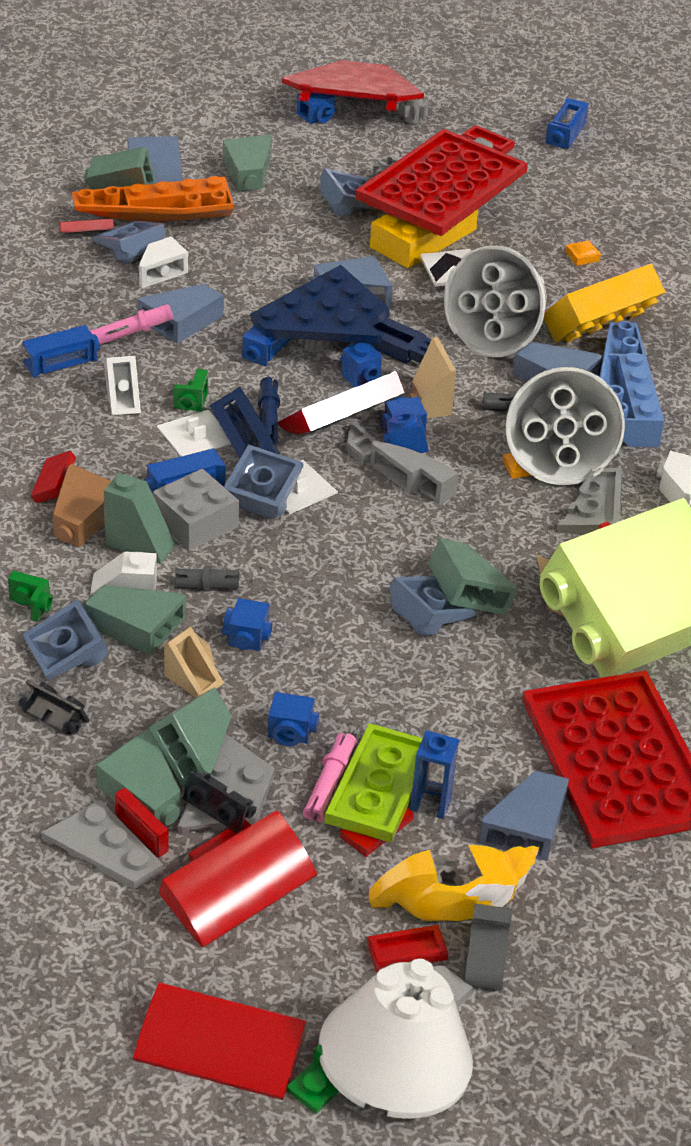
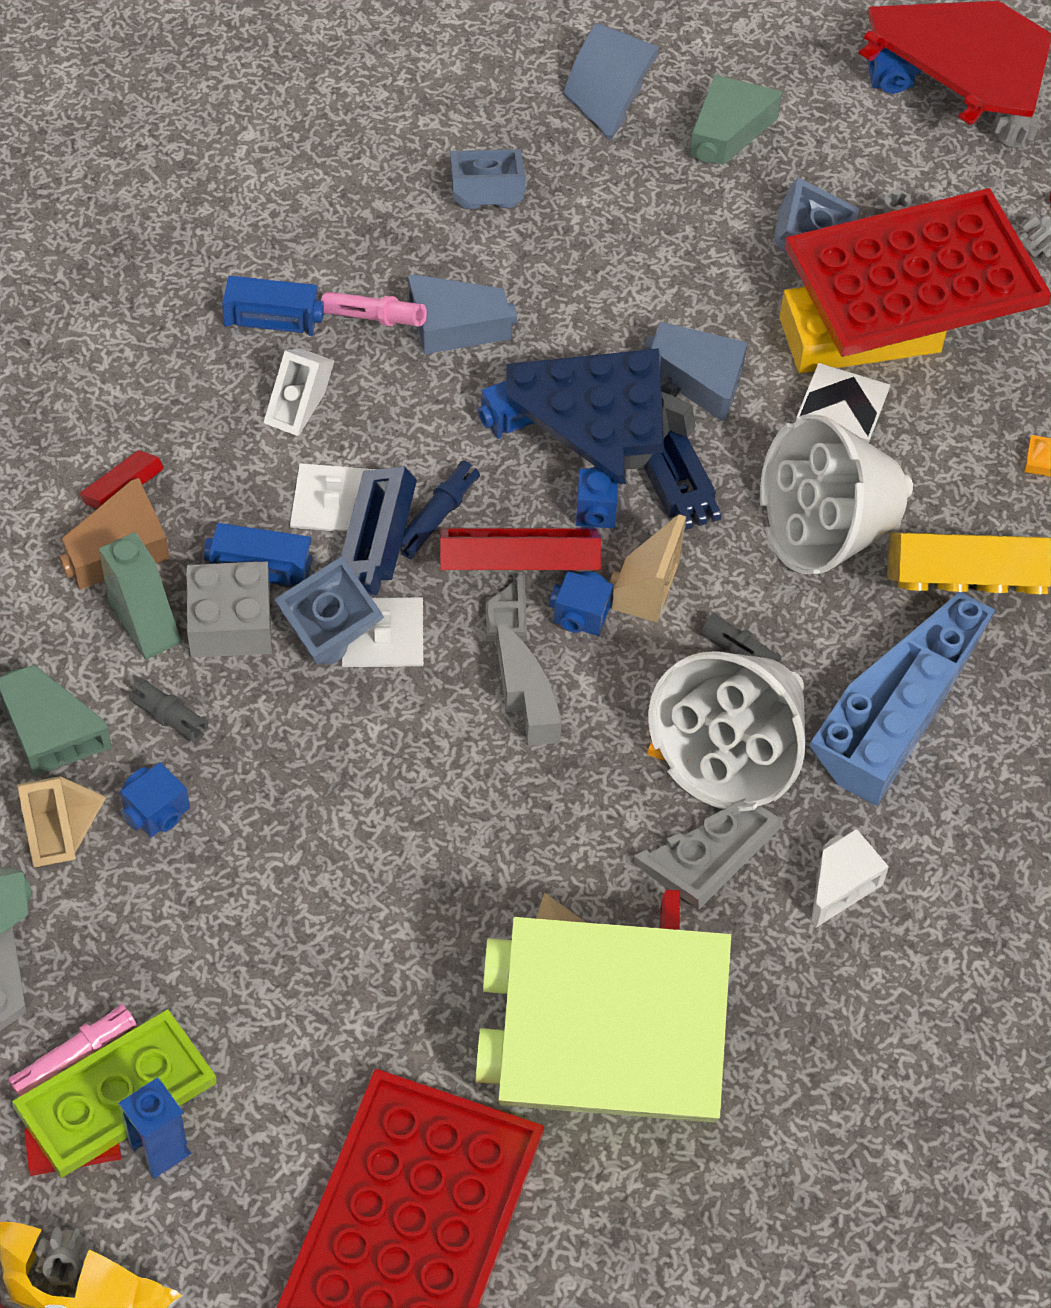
camera: 35 degrees right, 15 degrees up
(86, 225) = (455, 130): tile -> none
(120, 169) = (548, 78): sand green slope -> none
(129, 571) = (83, 665): white slope -> none
(159, 201) = (565, 134): orange wedge -> none
(162, 262) = (492, 228): white slope -> none
(194, 394) = (374, 442): green bracket -> none
(292, 719) = (93, 953): blue brick -> none
(407, 431) = (556, 632): blue brick -> none
(424, 604) = (379, 883): sand blue slope -> none
(470, 579) = (449, 878): sand green slope -> none
(527, 815) = (235, 1238): sand blue slope -> none
(542, 357) = (839, 625): sand blue slope -> none

